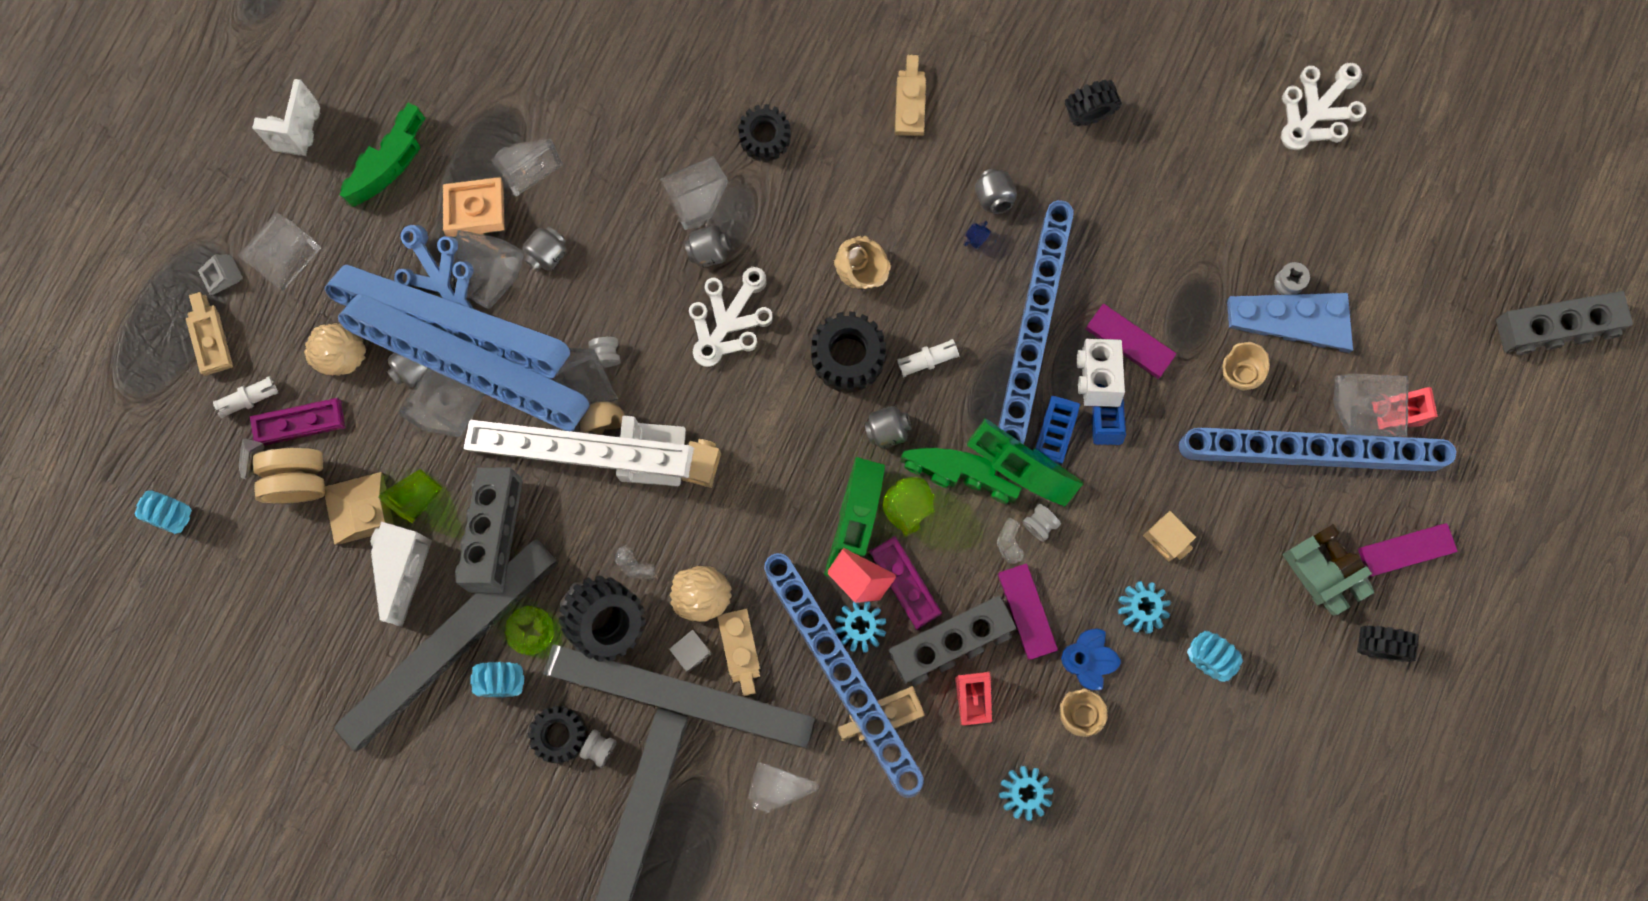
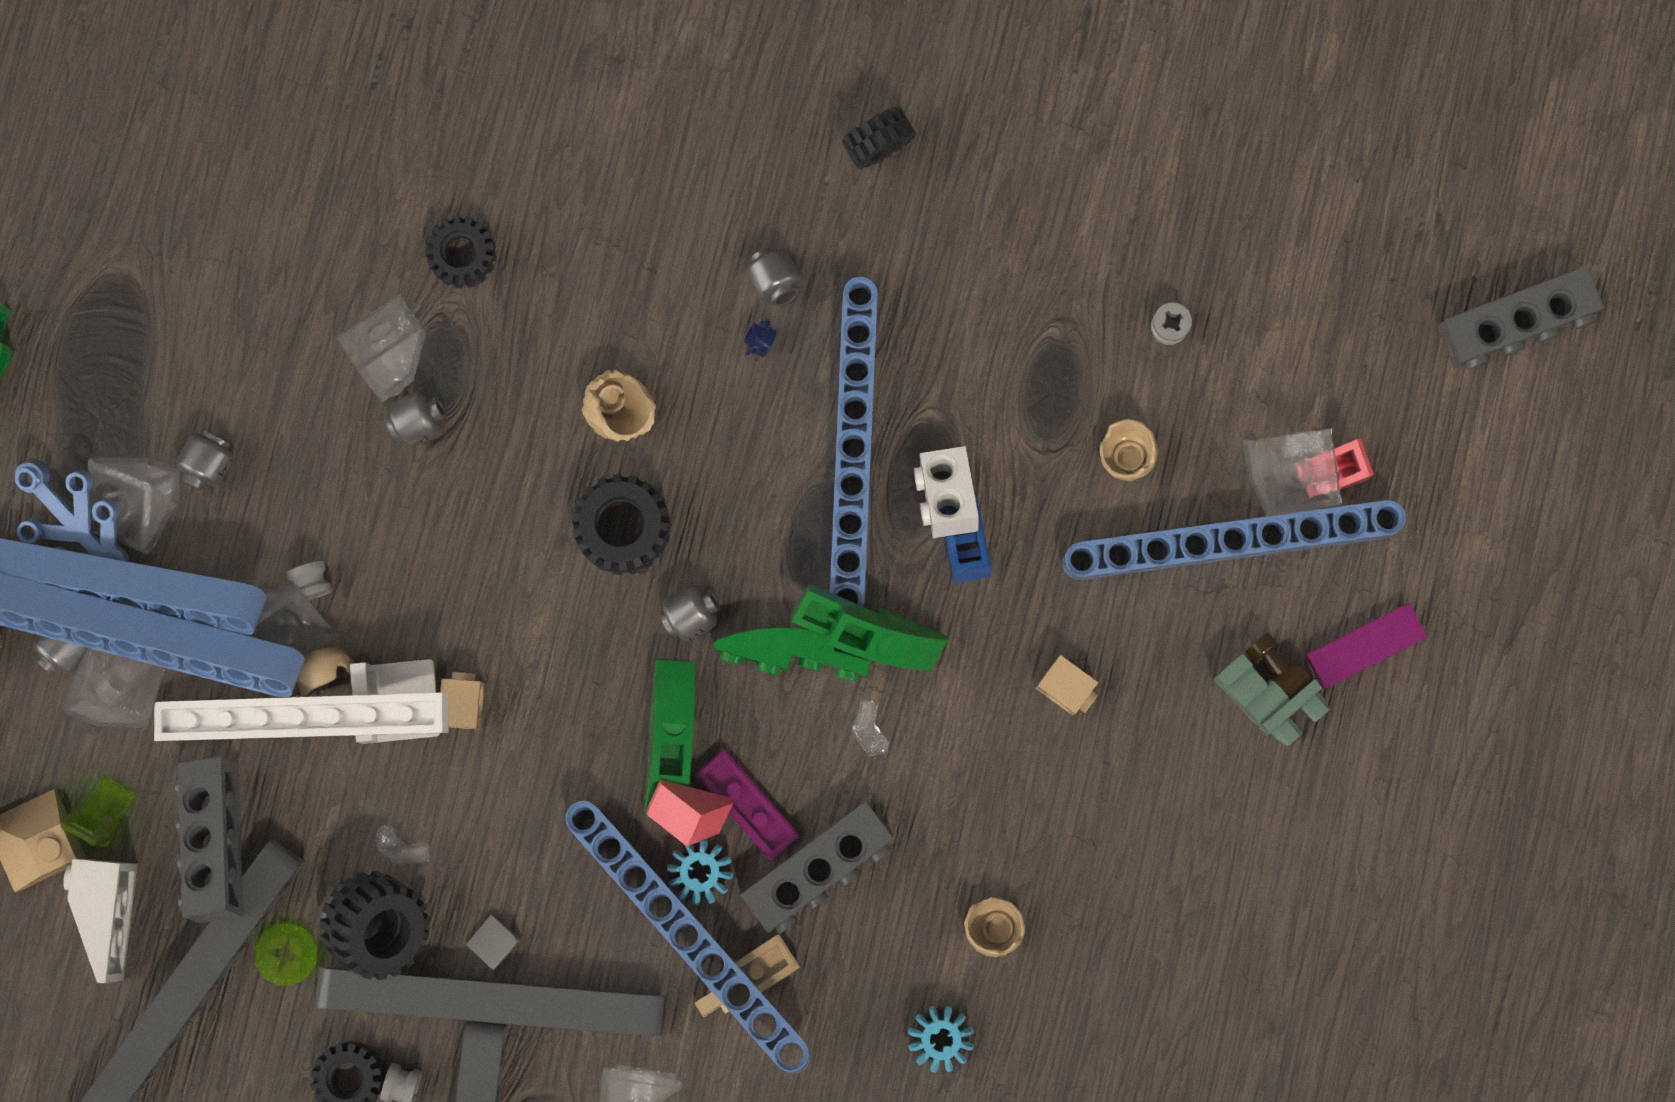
camera: 15 degrees left, 5 degrees up
(473, 206) = (101, 421): light nougat hinge -> none
(497, 679) = (258, 1025): medium azure gear -> none
(526, 163) = (156, 353): clear slope -> none
(700, 593) = (491, 868): tan hair -> none
(727, 320) = (460, 511): white plant -> none
(740, 649) = (555, 928): tan hinge -> none
(908, 504) = (732, 707): clear neon green hair -> none
(910, 99) = (642, 171): tan hinge -> none
(928, 358) = (725, 512): white pin -> none
(974, 698) = (858, 935): coral slope -> none
(1027, 611) = (905, 813): magenta tile -> none
(1041, 522) = (904, 698): light grey wheel -> none
(1064, 405) = (908, 542): blue slope -> none
(1095, 659) = (999, 855): blue plate -> none
(1136, 343) = (982, 441): magenta tile -> none
(1149, 598) = (1053, 768): medium azure gear -> none
(1215, 656) = (1145, 826): medium azure gear -> none
(1300, 317) = (1194, 370): medium blue wing -> none
(1319, 109) = (1172, 90): white plant -> none
(1388, 643) = (1354, 771): black tyre -> none

